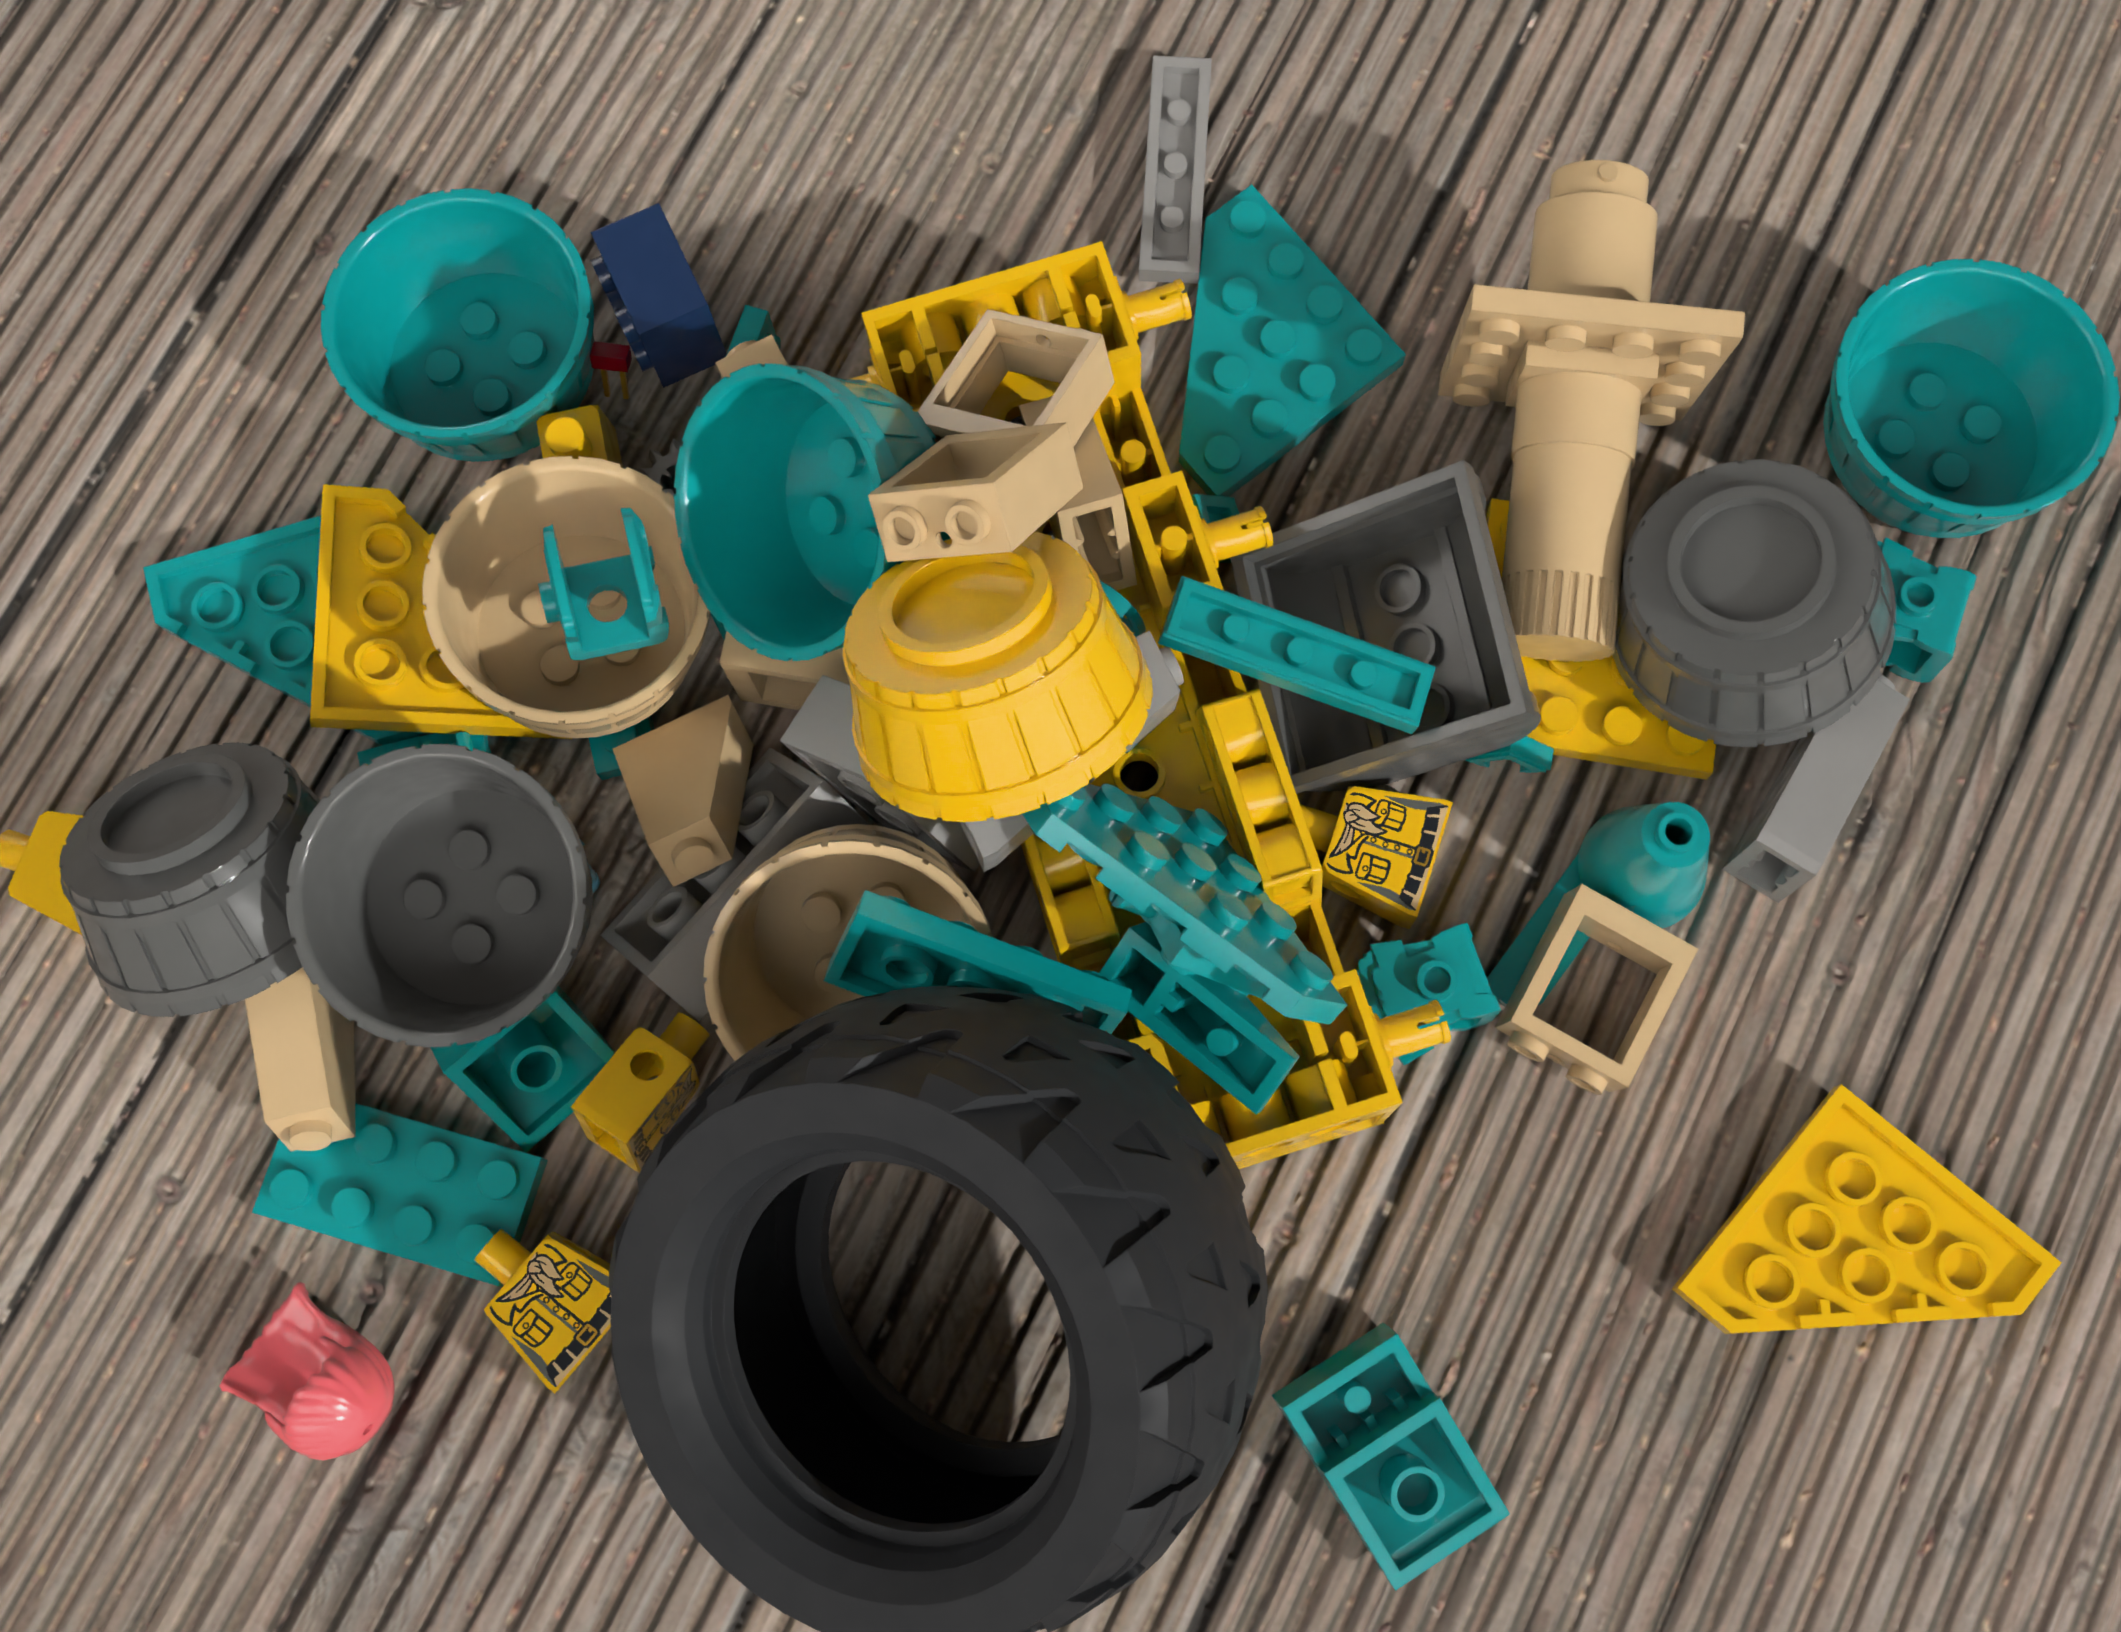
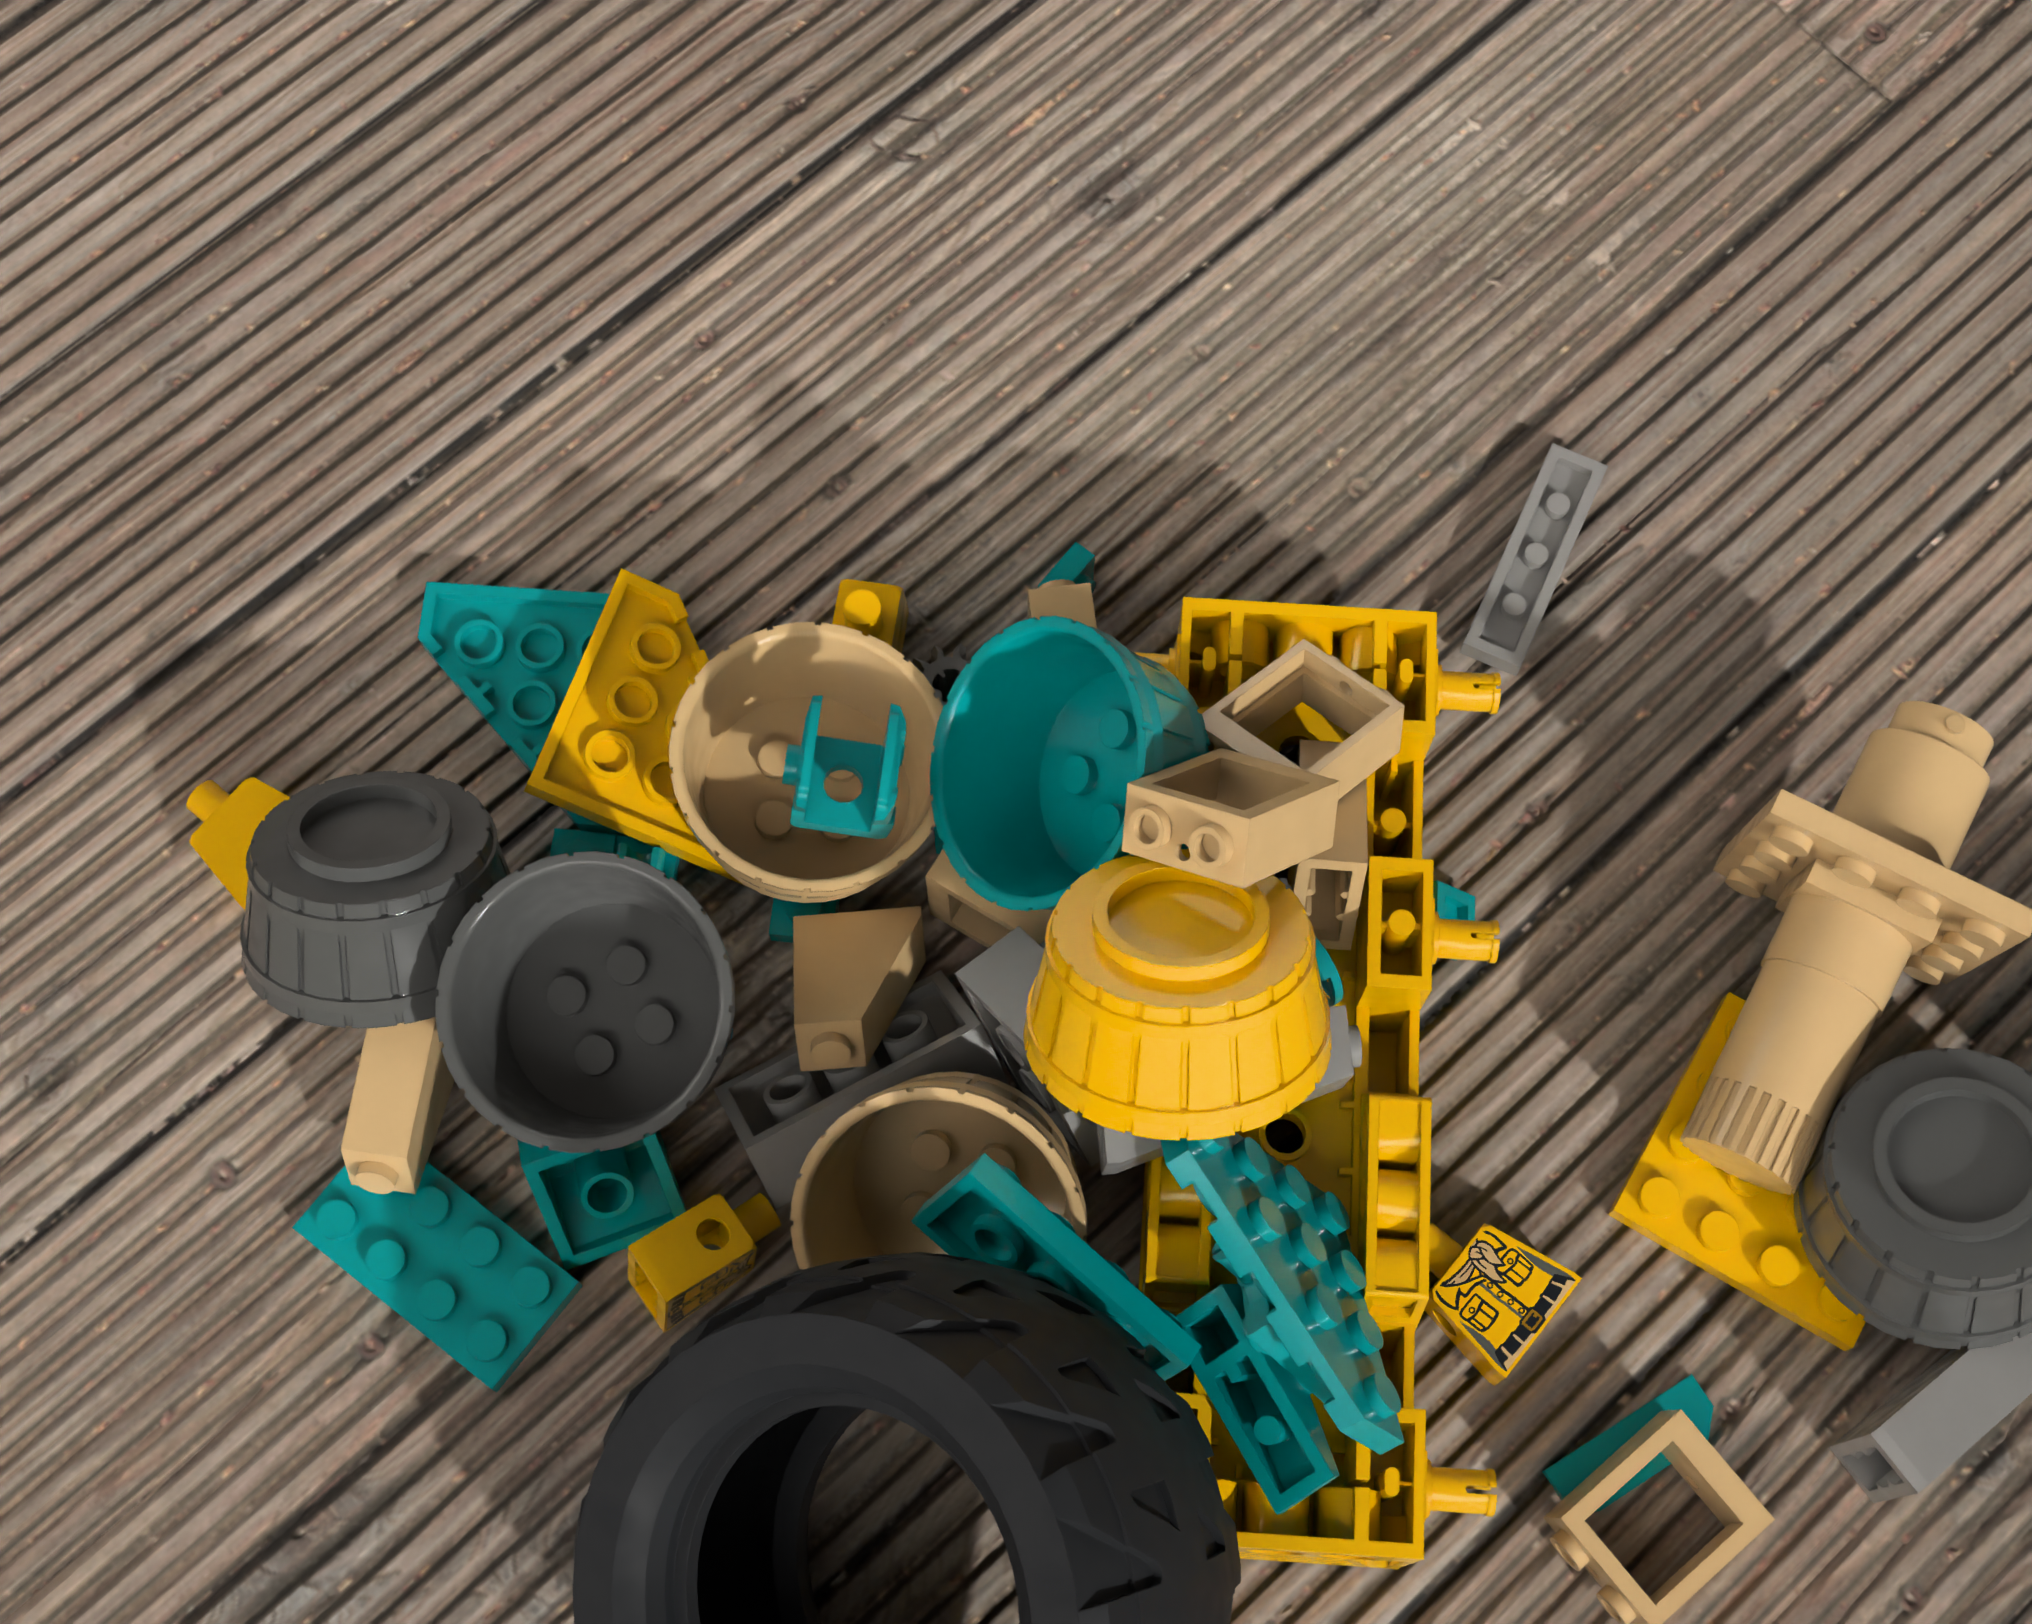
camera: 15 degrees right, 5 degrees down
(314, 1380) = (289, 1411): coral piece -> none
(461, 323) = (806, 465): teal piece -> none
(550, 1302) = (537, 1427): torso -> none
(613, 358) = (931, 545): dark red piece -> none
(656, 296) = (995, 504): dark blue brick -> none
(1270, 347) = (1565, 763): teal plate -> none
(1297, 655) = (1480, 1081): teal tile -> none
(1413, 578) = (1574, 1092): dark grey container -> none
(1440, 969) = (1498, 1437): teal piece -> none
(1527, 752) = (1656, 1242): teal tile -> none
(1648, 859) = (1755, 1410): teal cone -> none

